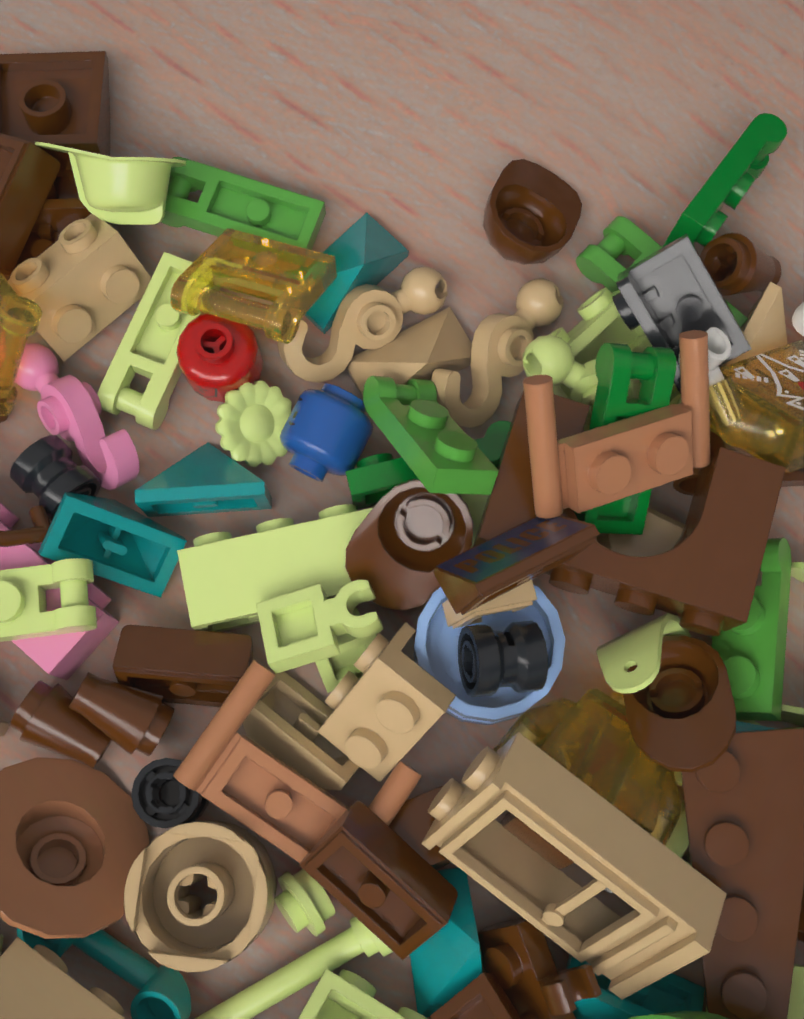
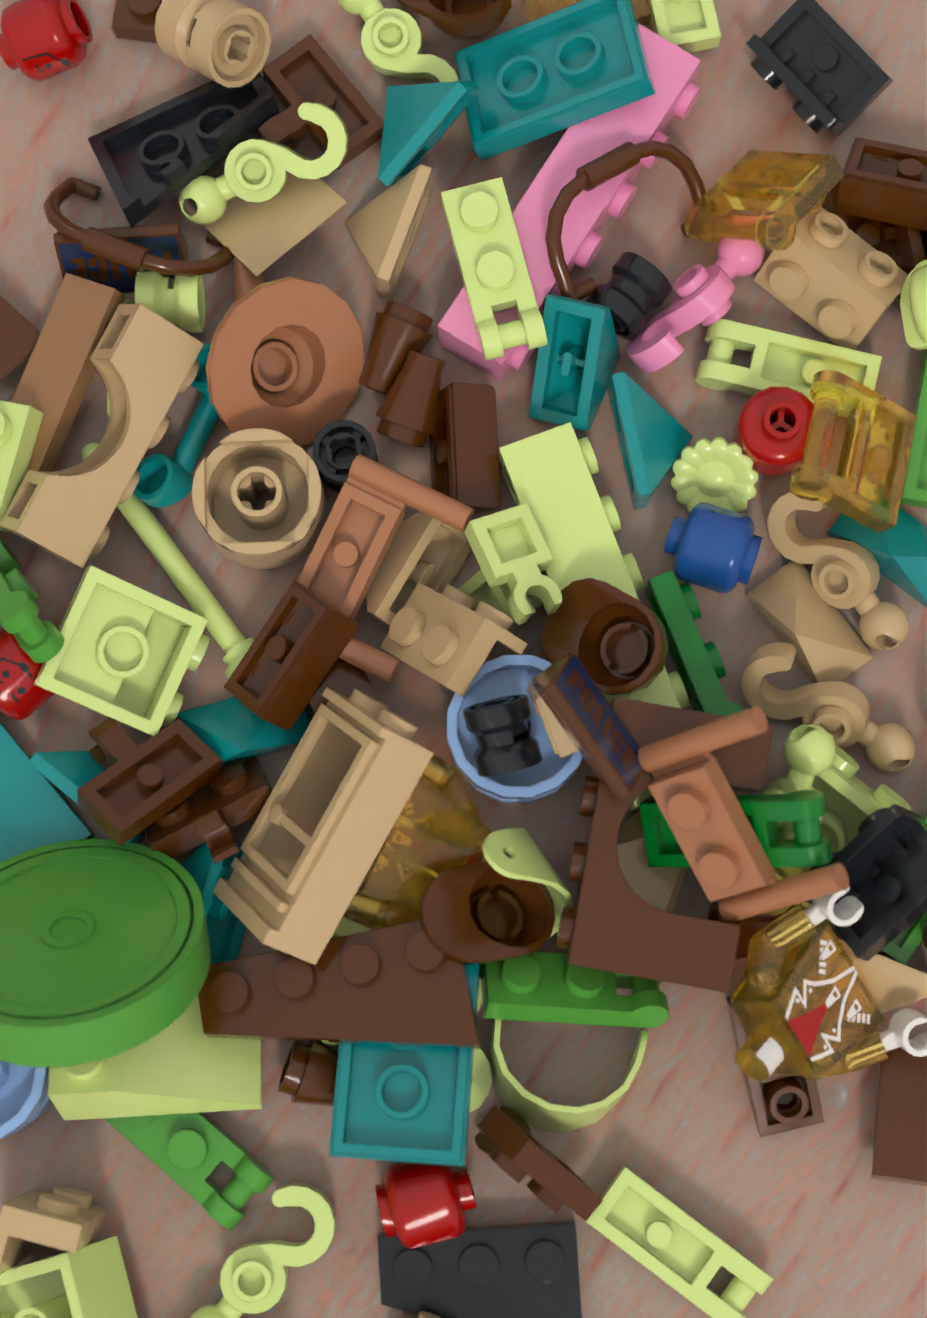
camera: 85 degrees right, 5 degrees up
(304, 902) = (262, 593): yellowish green plate -> none
(428, 437) = (713, 640): bright green plate -> none

